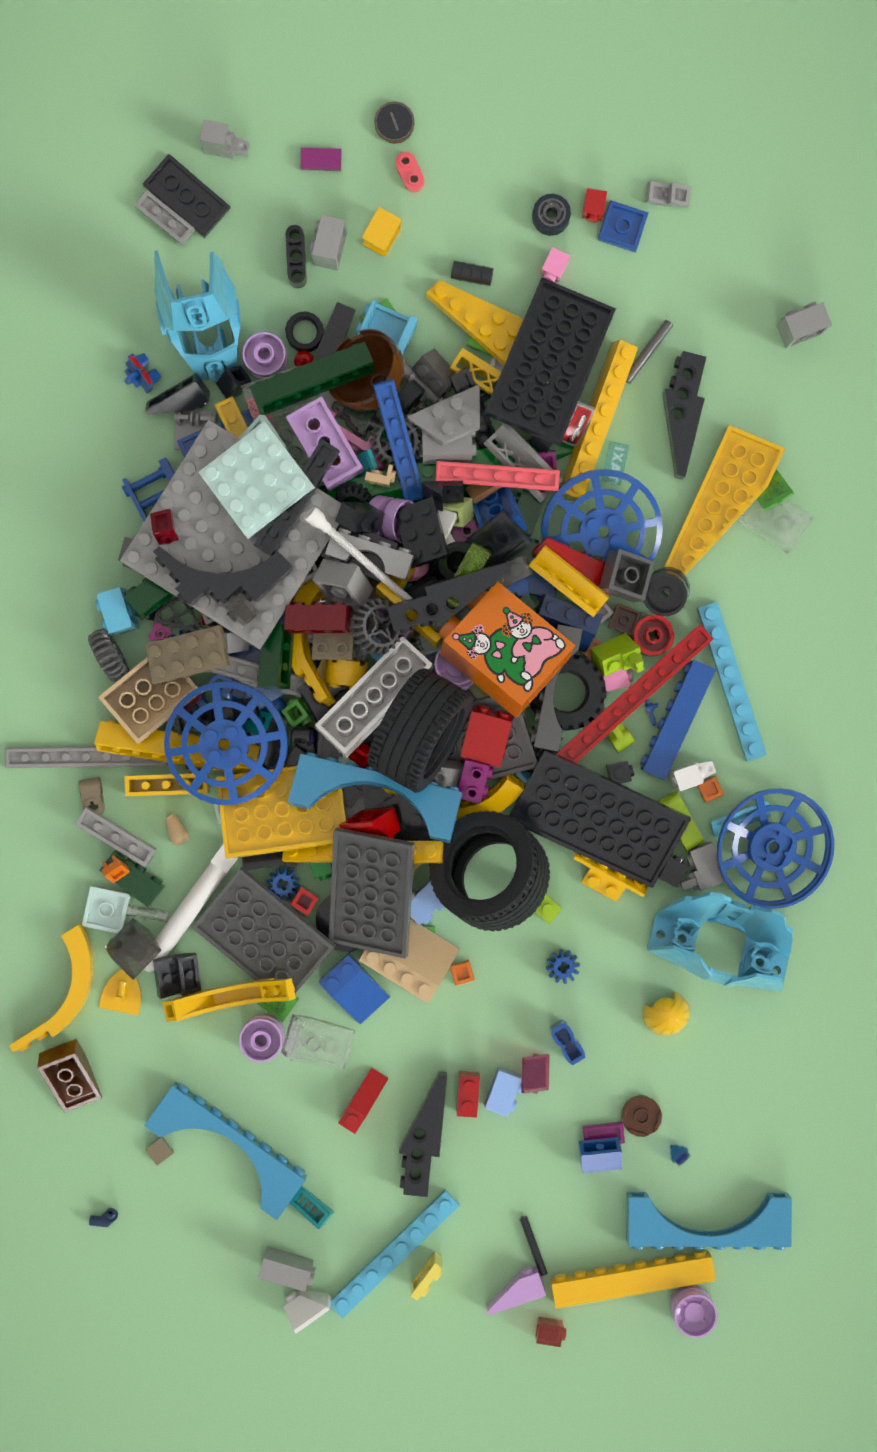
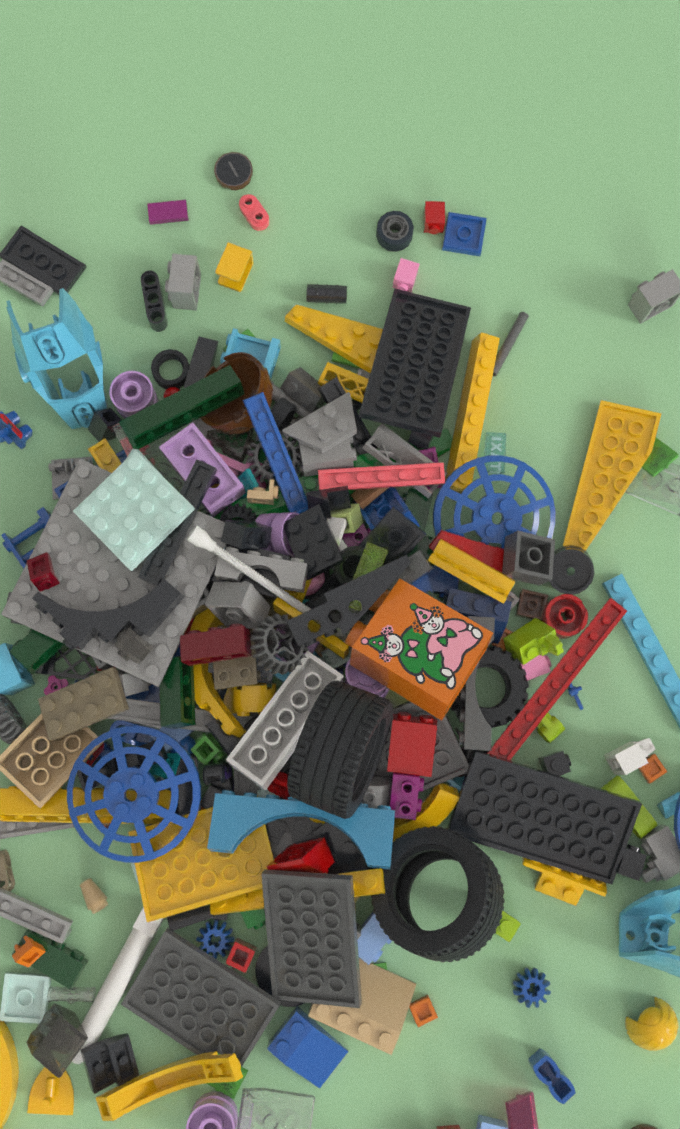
camera: 10 degrees left, 10 degrees down
(160, 785) = (70, 849): yellow brick -> none
(182, 397) = (56, 446): black slope -> none
(219, 141) = (68, 205): light grey hinge -> none
(578, 424) = (454, 417): slope -> none
(668, 195) = (502, 201): light grey slope -> none
(678, 719) = (605, 700): blue brick -> none
(683, 430) = (554, 412): black brick -> none

